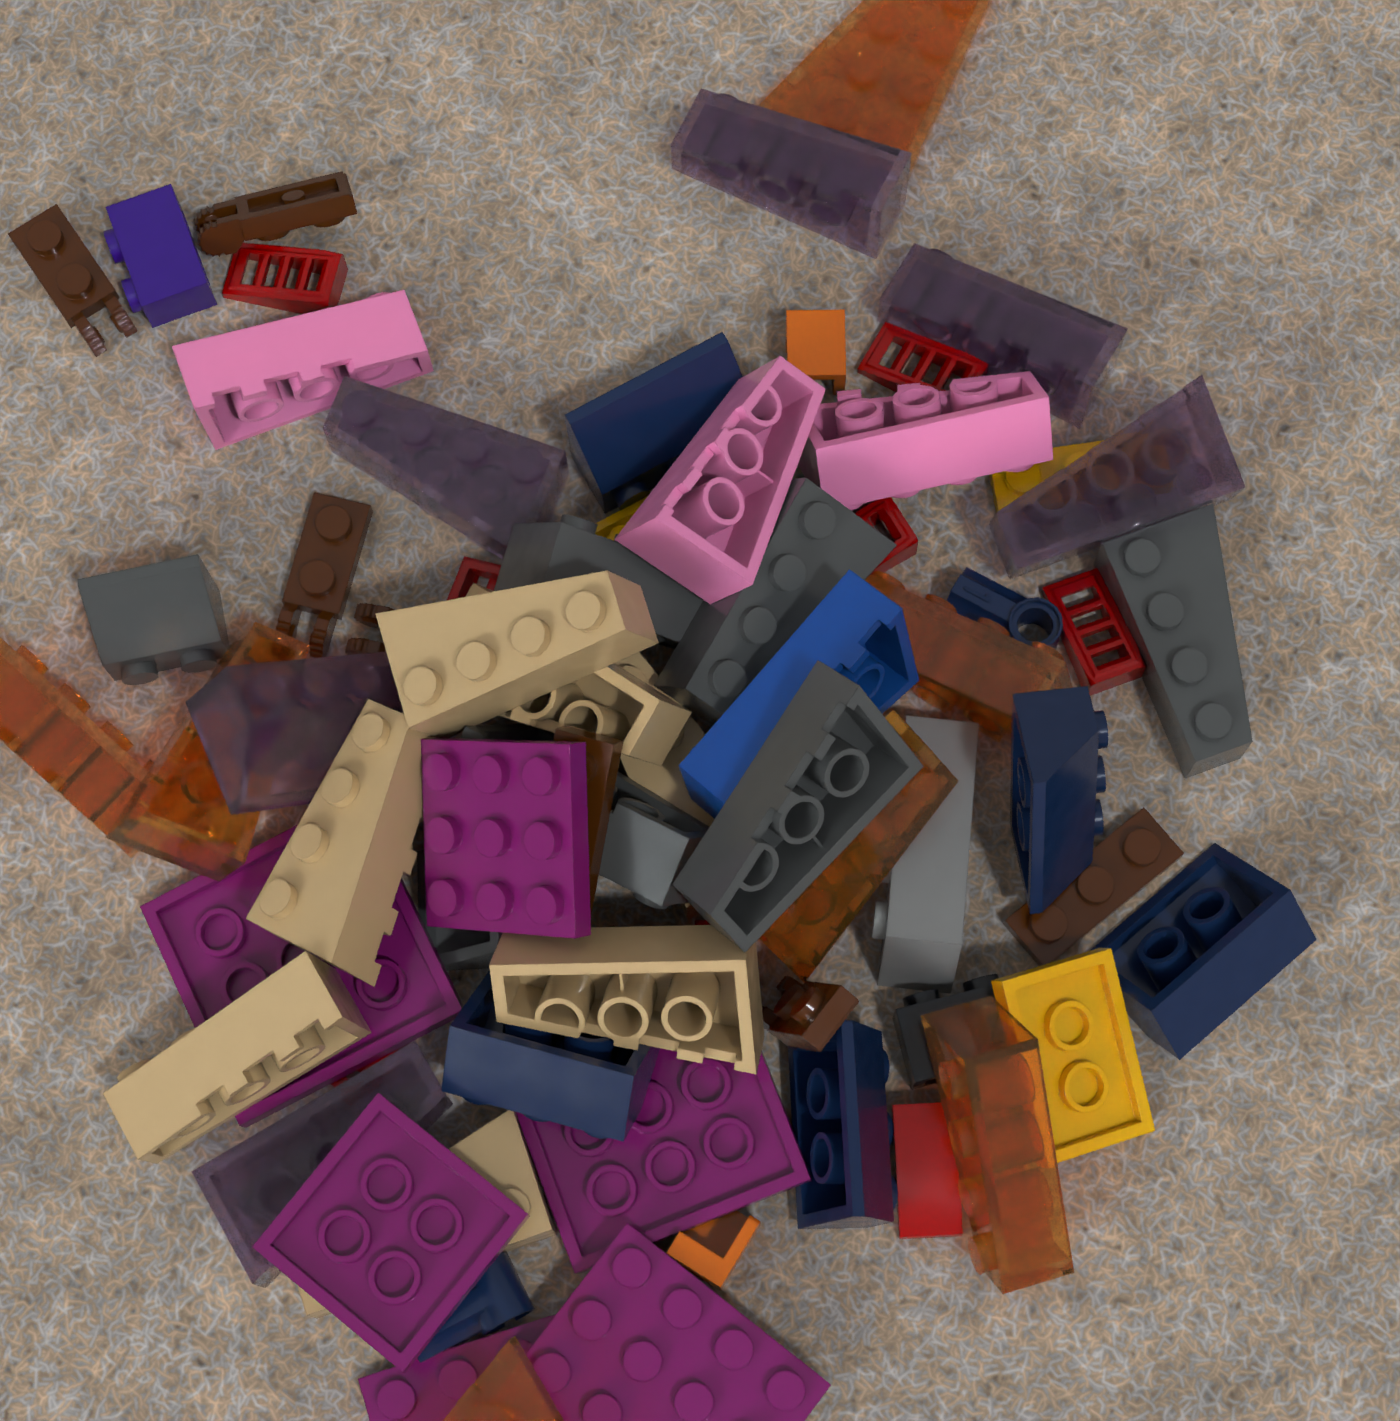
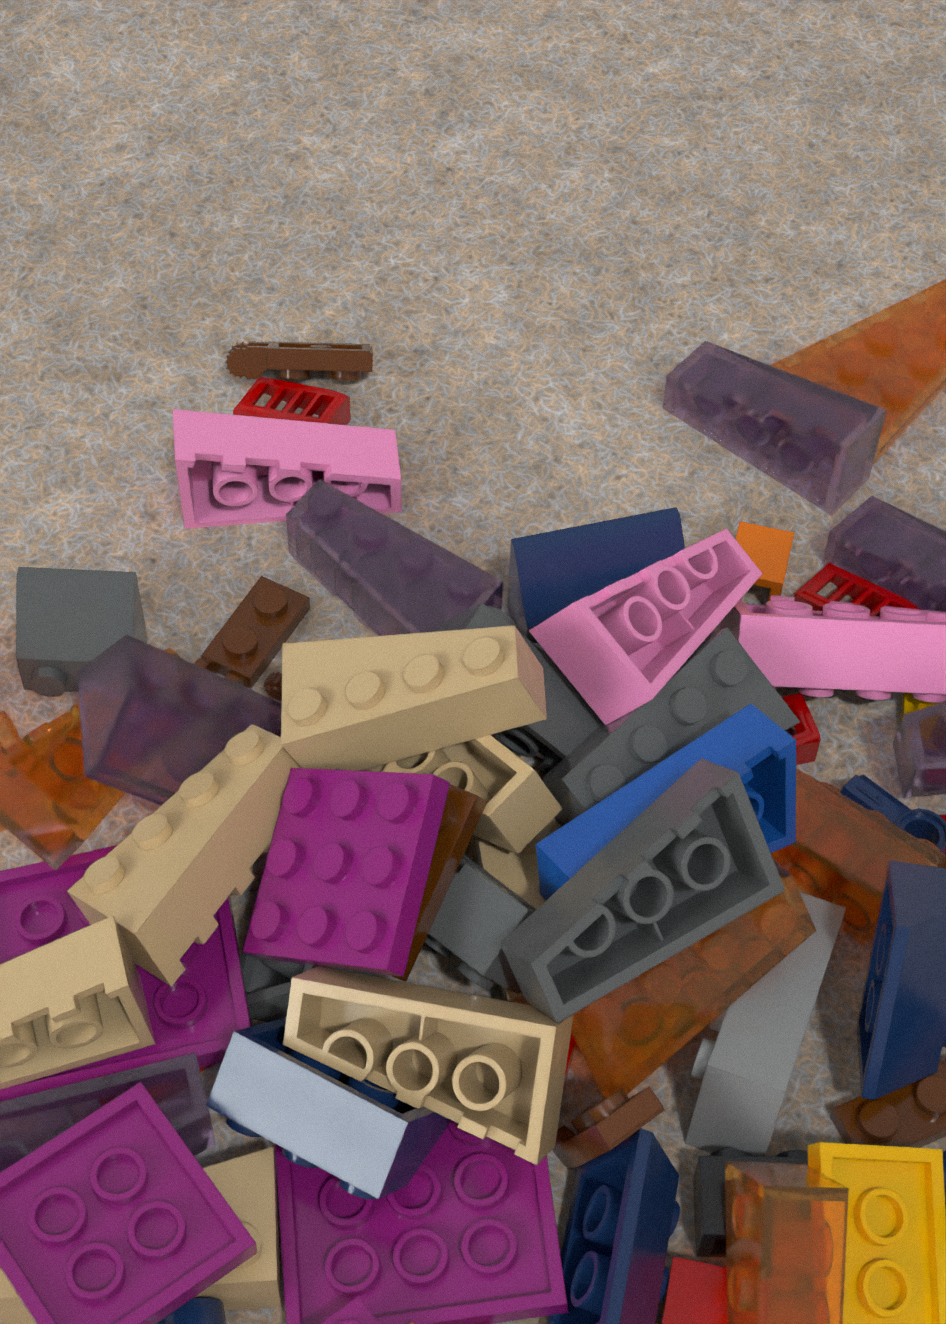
camera: 10 degrees right, 20 degrees down
(70, 275) = (106, 369): reddish brown hinge -> none
(160, 257) = (187, 364): dark purple brick -> none

